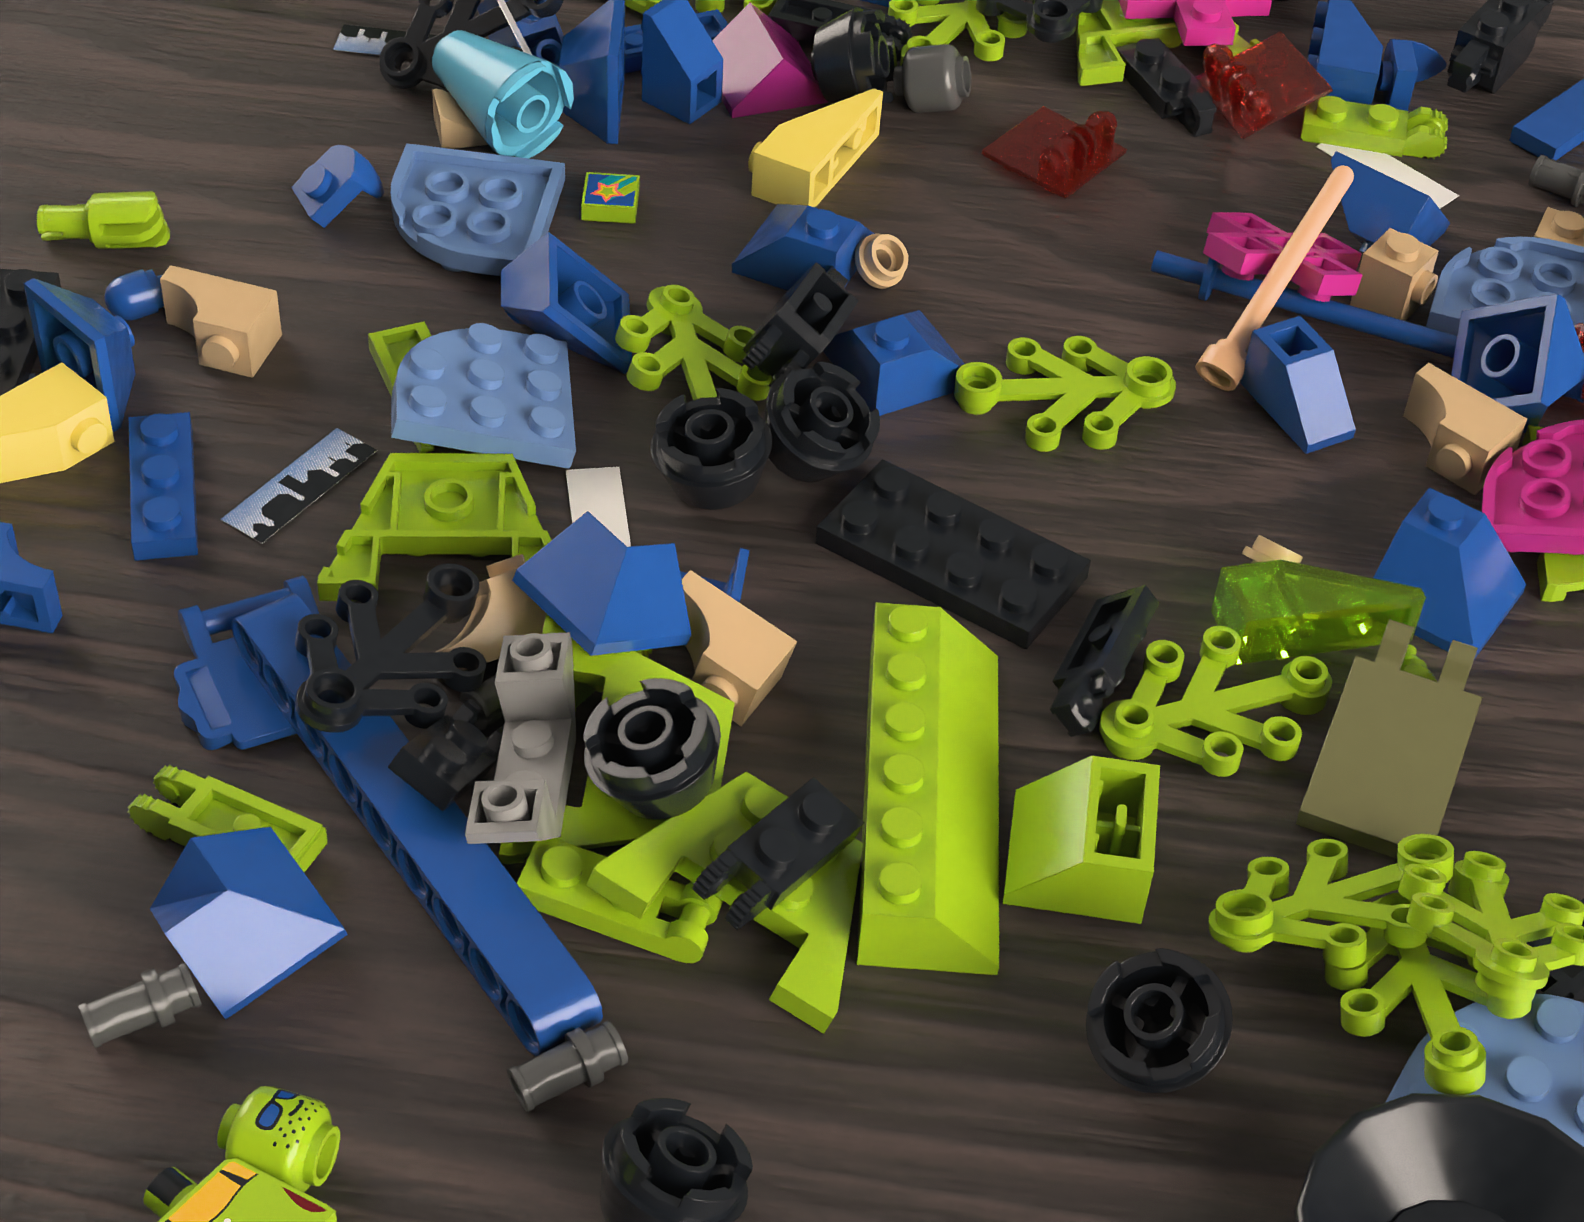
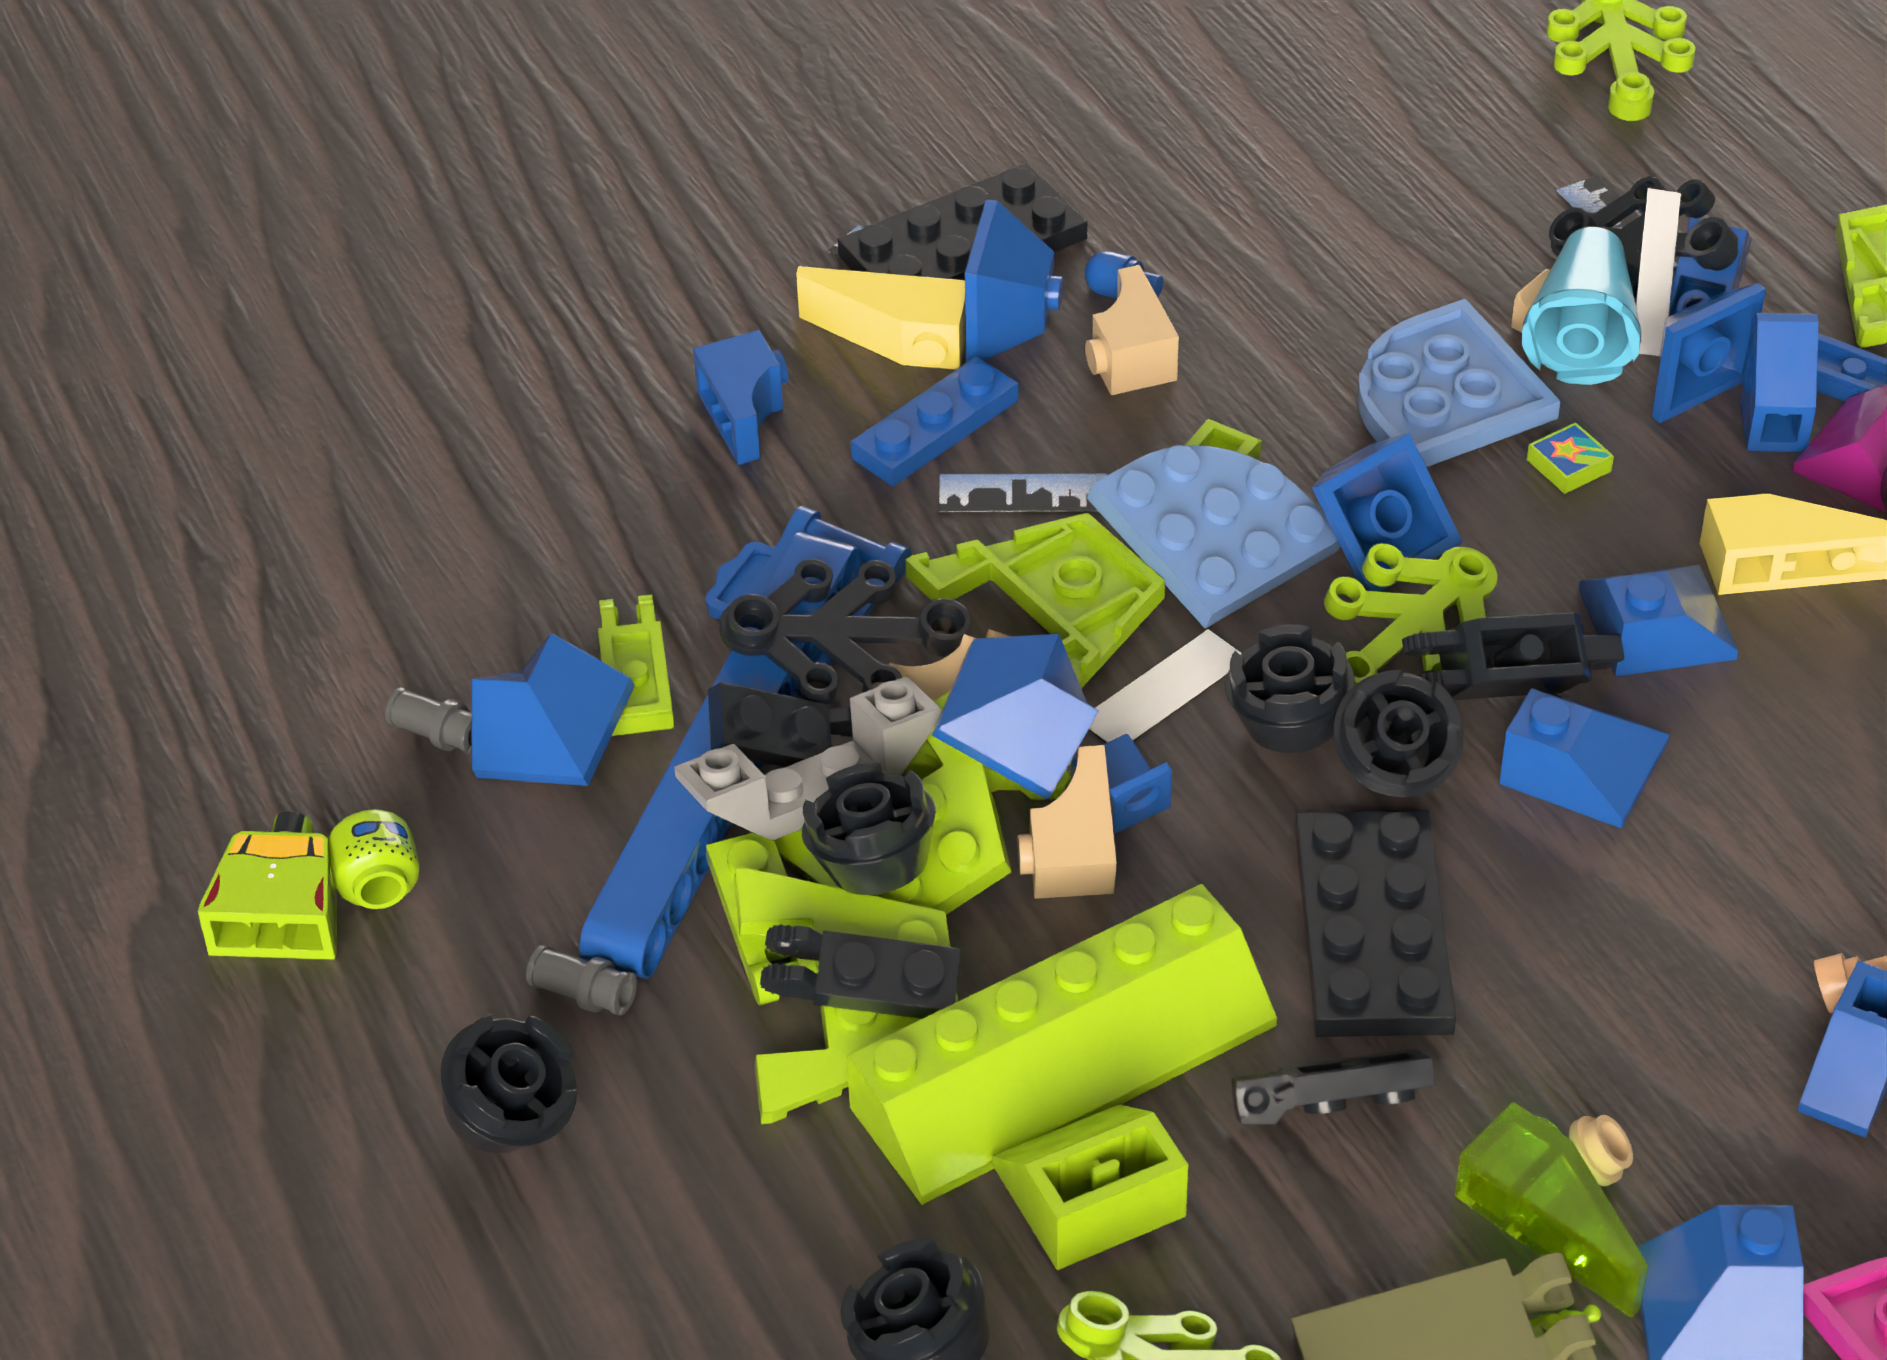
camera: 60 degrees right, 0 degrees up
(108, 221) = (1173, 208): lime arm -> none
(335, 182) = (1367, 289): blue plate -> none
(887, 251) = (1713, 662): tan plate -> none
(1137, 384) = (1745, 940): lime plant -> none
(1139, 726) = (1362, 1191): lime plant -> none

